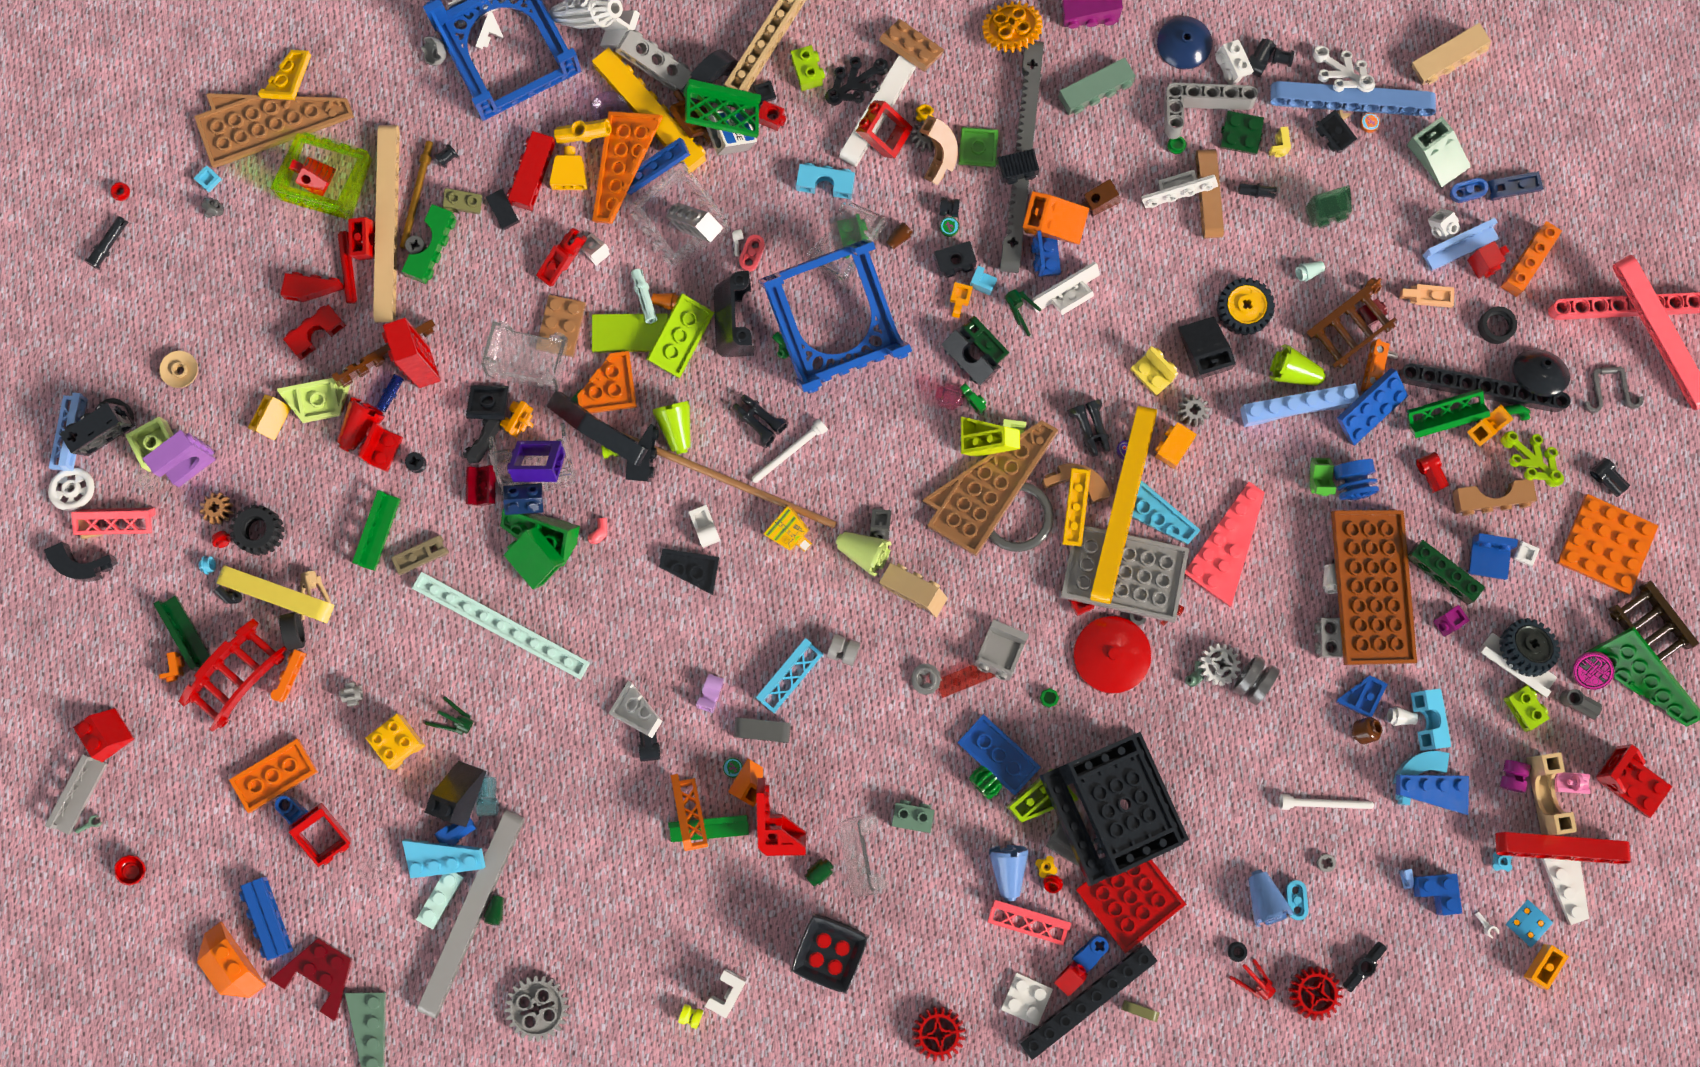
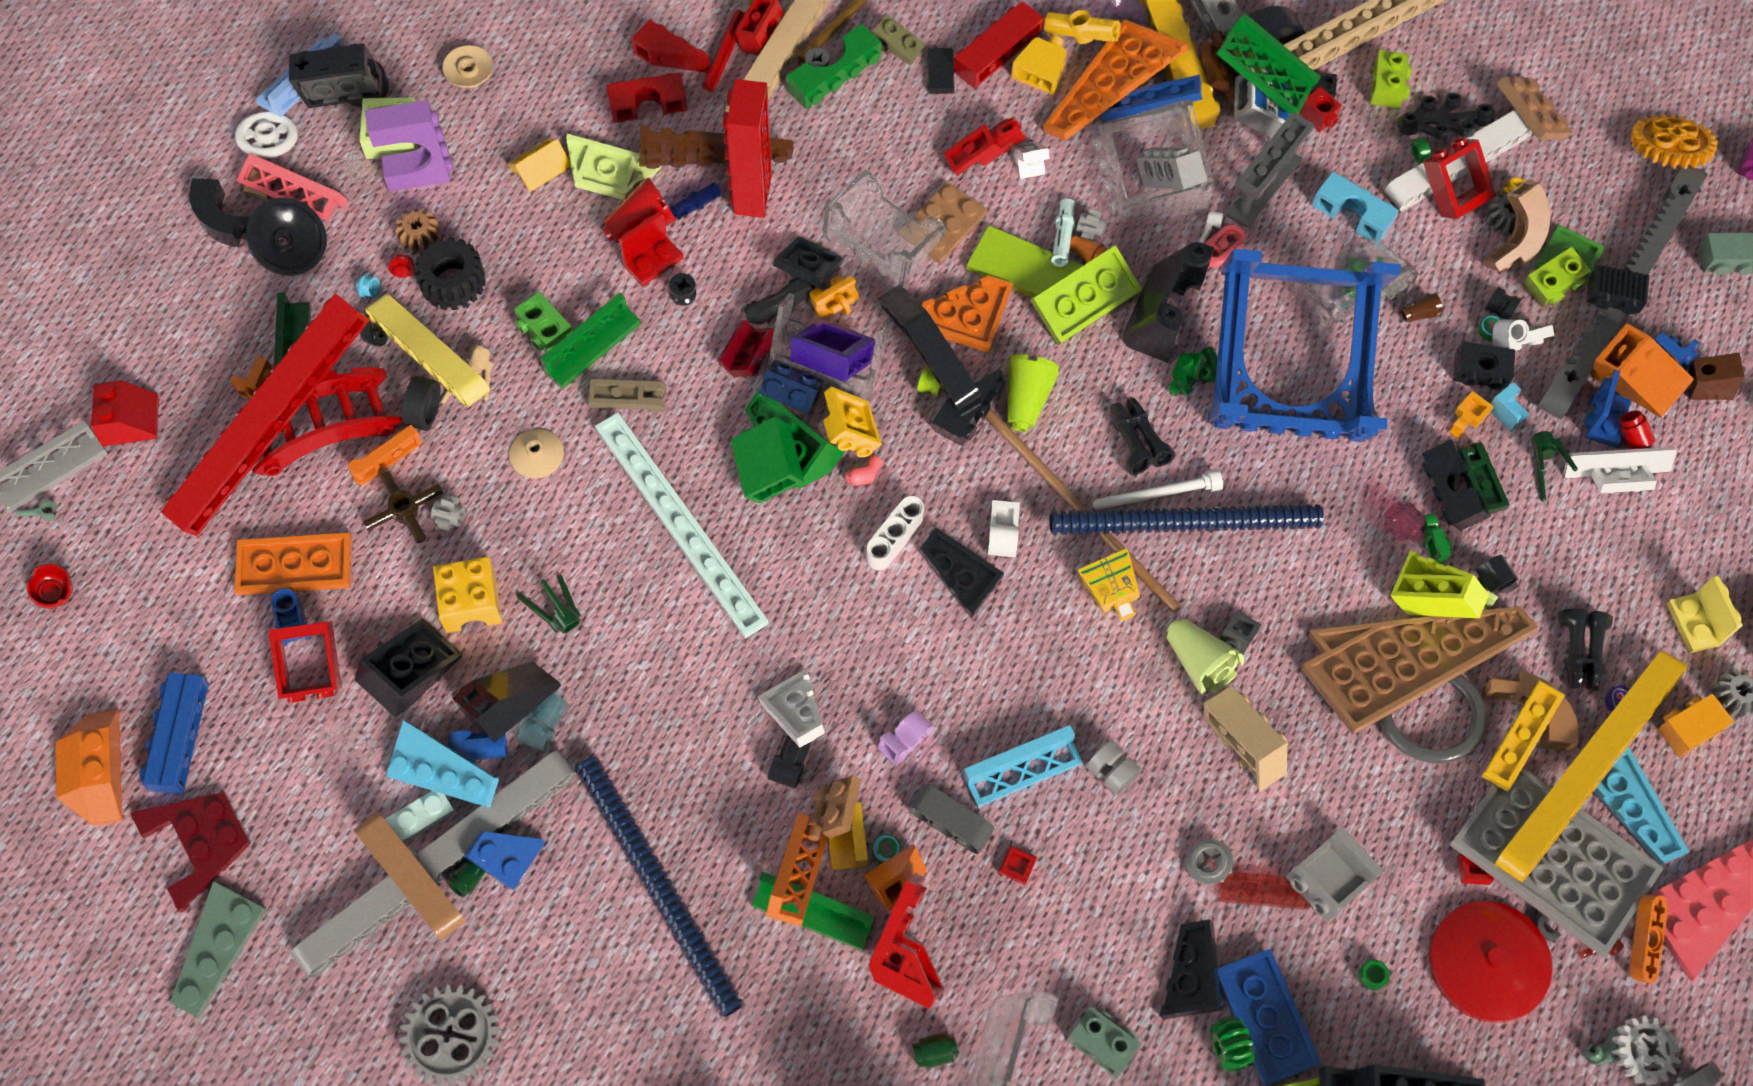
camera: 25 degrees right, 15 degrees down
(143, 550) = (296, 224): none -> black dish
(200, 694) = (264, 415): none -> red brick
(313, 704) = (399, 498): none -> dark brown bar
(340, 530) = (547, 322): none -> bright green brick
(383, 804) = (406, 666): none -> black slope
(389, 630) = (537, 463): none -> tan dish
(461, 932) = (409, 876): none -> medium nougat beam
(509, 889) = (503, 855): none -> blue wing
(574, 505) = (850, 423): none -> yellow plate
(609, 858) = (659, 886): none -> dark blue piece
(641, 573) = (897, 521): none -> white beam
(659, 282) = (1091, 225): none -> light grey gear
(692, 754) = (840, 806): none -> medium nougat plate
(706, 773) = (850, 849): none -> yellow panel
(758, 186) = (1270, 169): none -> dark grey fence
(768, 357) = (1187, 370): none -> green plate
(814, 737) = (1017, 865): none -> red tile
(815, 464) = (1186, 519): none -> dark blue piece
(850, 114) = (1420, 149): none -> green tile
(947, 752) = (1194, 976): none -> black wing
(970, 226) = (1514, 333): none -> white plate
(976, 171) = (1557, 277): none -> lime brick
(1020, 408) = (1497, 575): none -> black plate
(1067, 193) = (1673, 347): none -> blue bracket
(1067, 260) = (1636, 430): none -> red brick
(1199, 614) = (1650, 921): none -> orange beam

